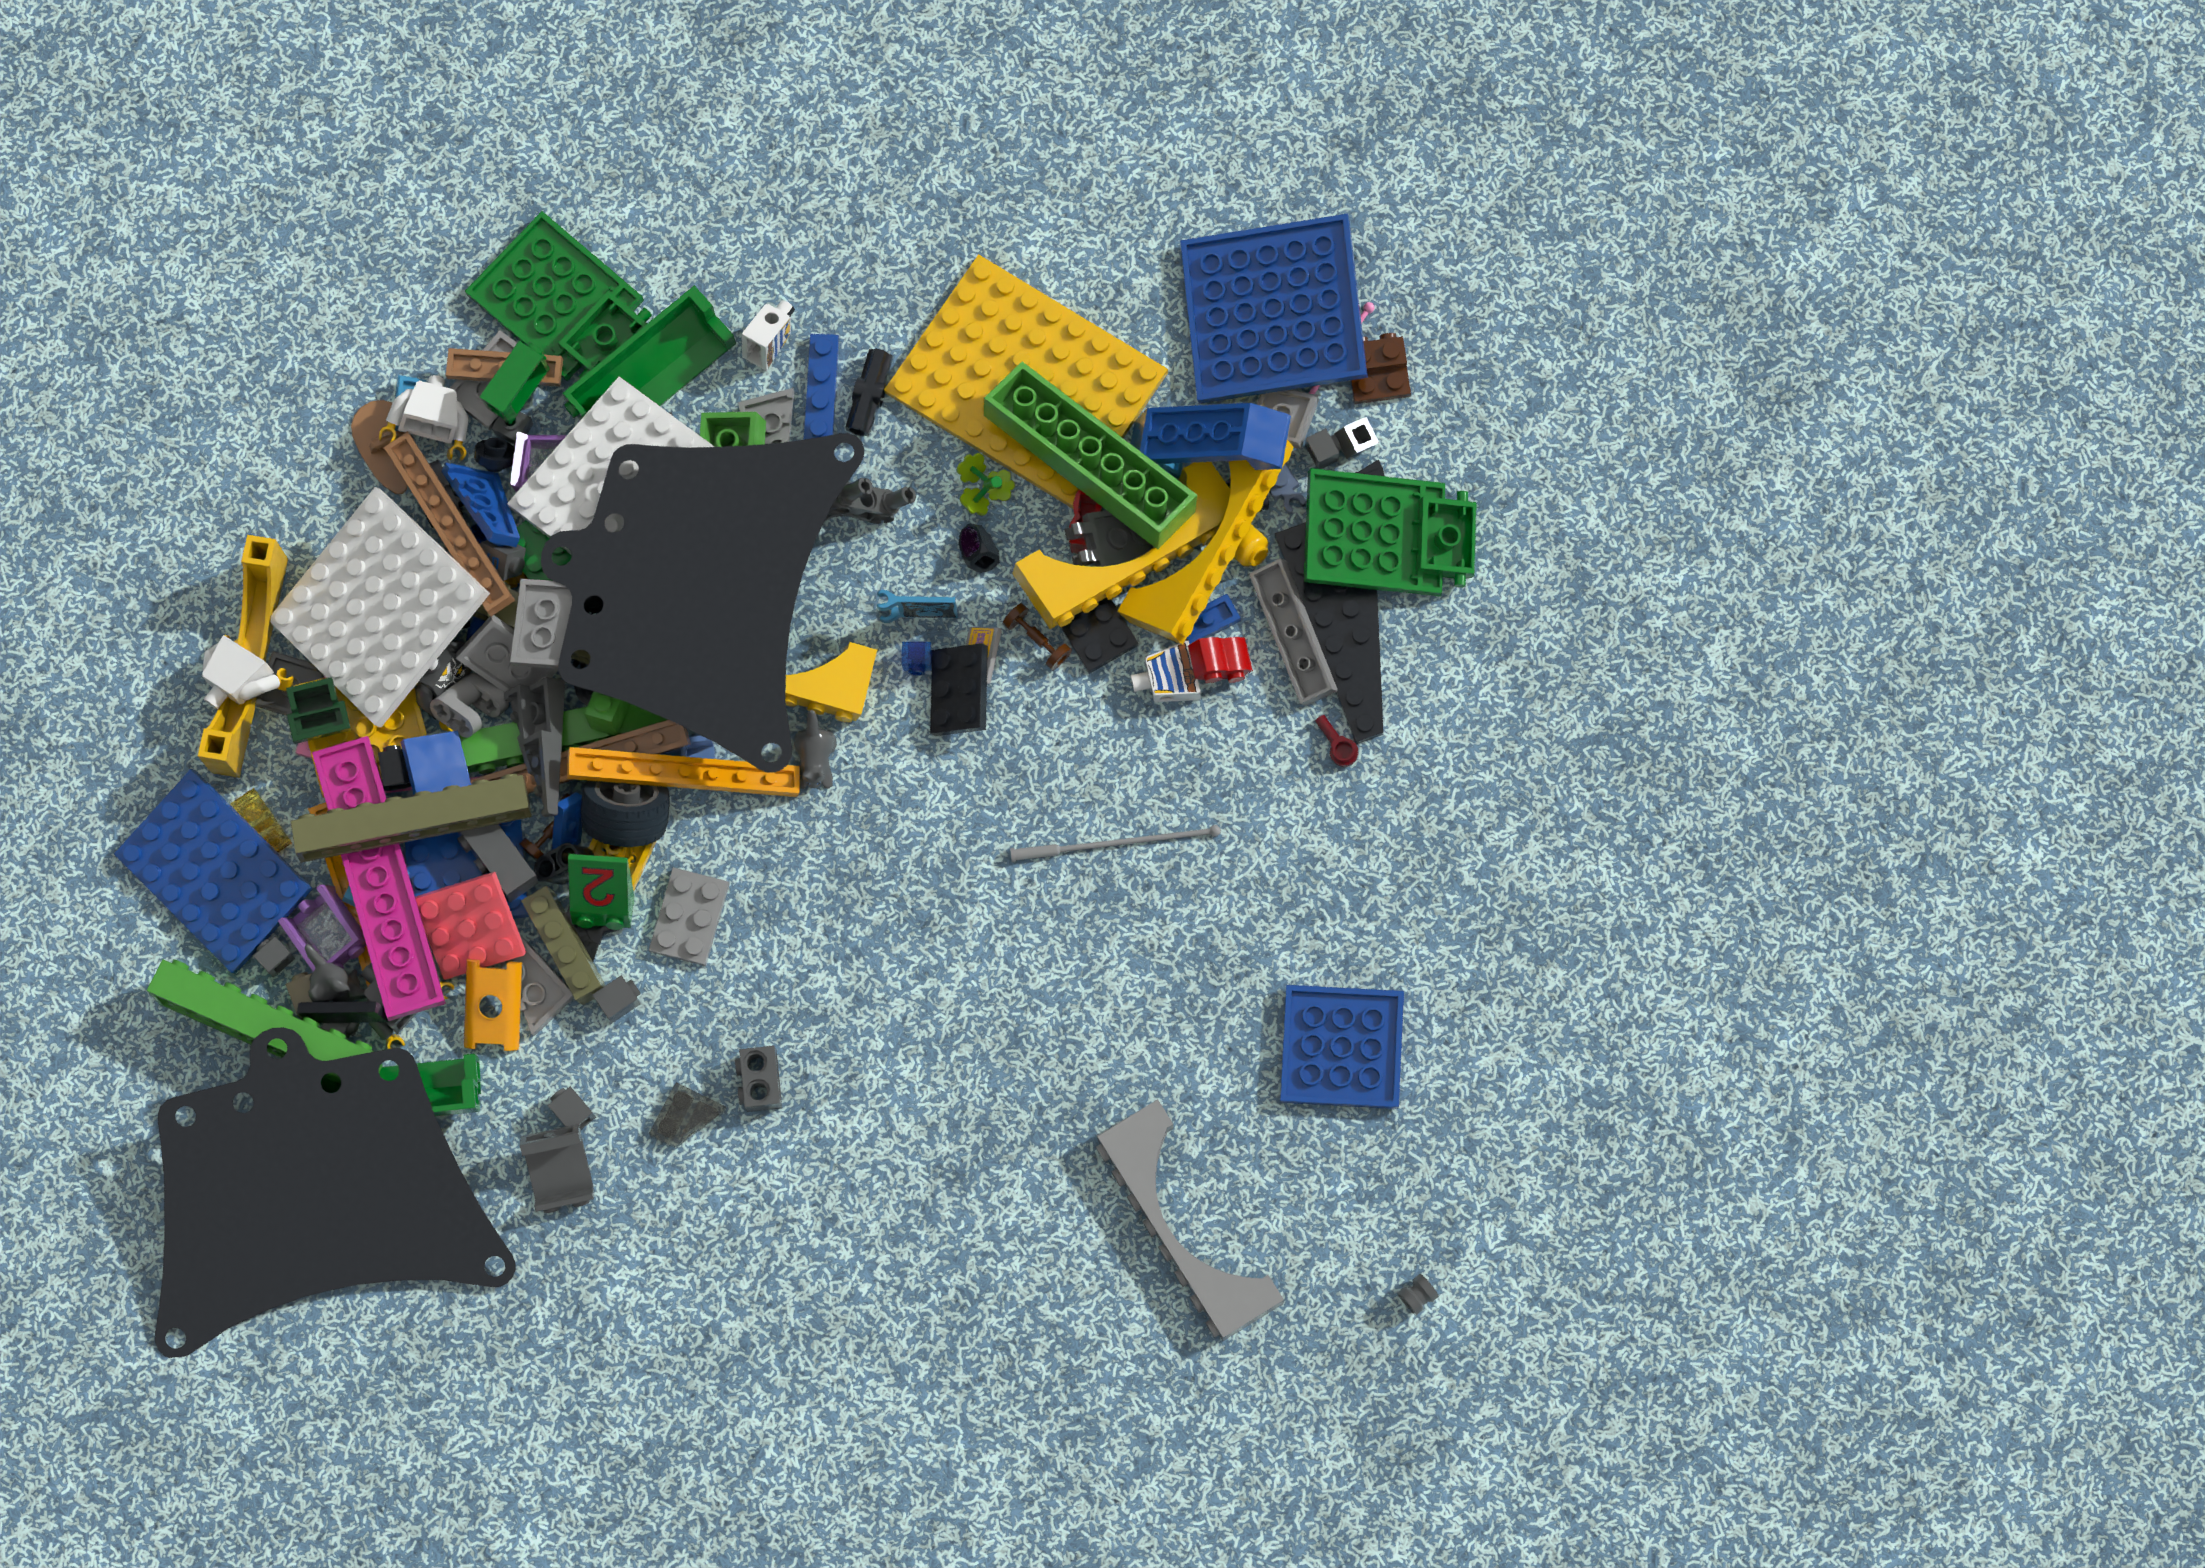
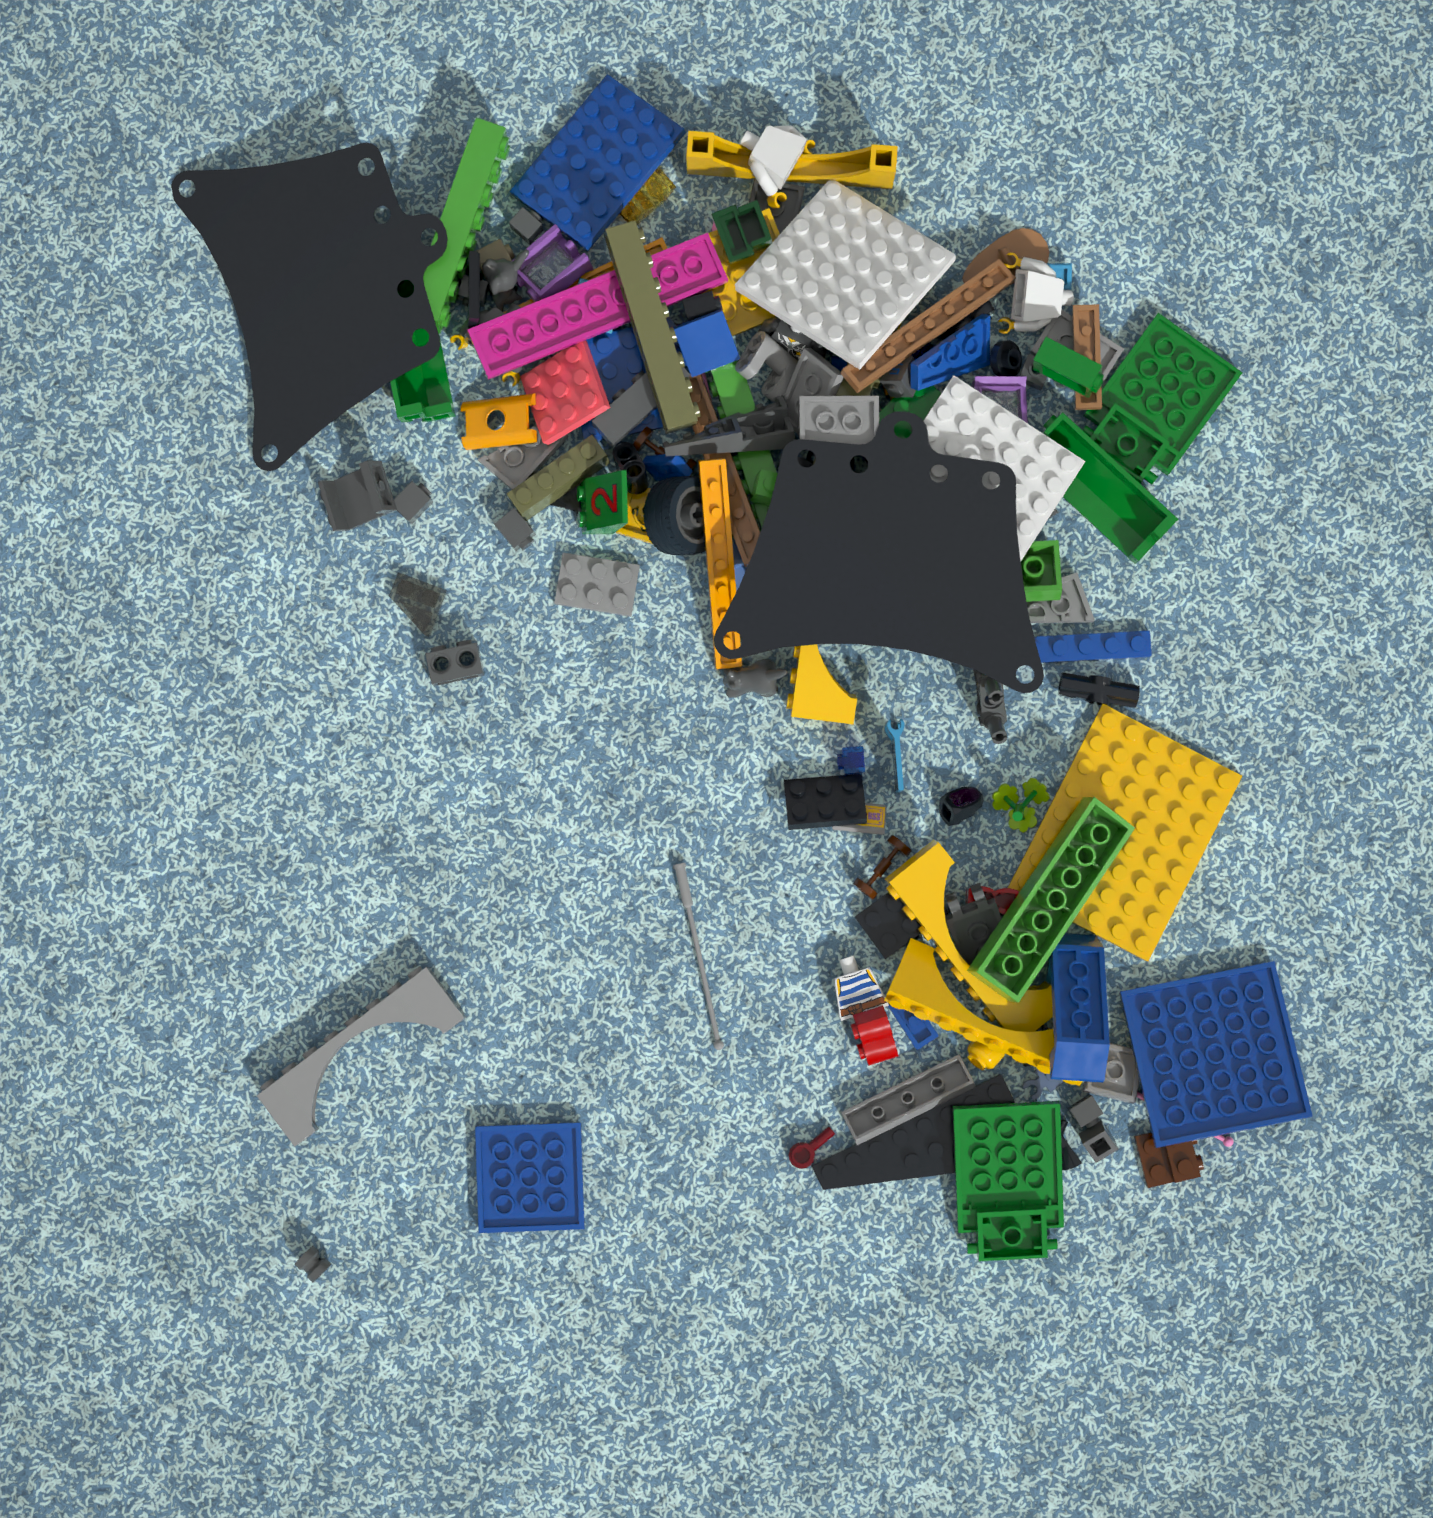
camera: 80 degrees right, 10 degrees up
(767, 334) = (1135, 588): white torso -> none

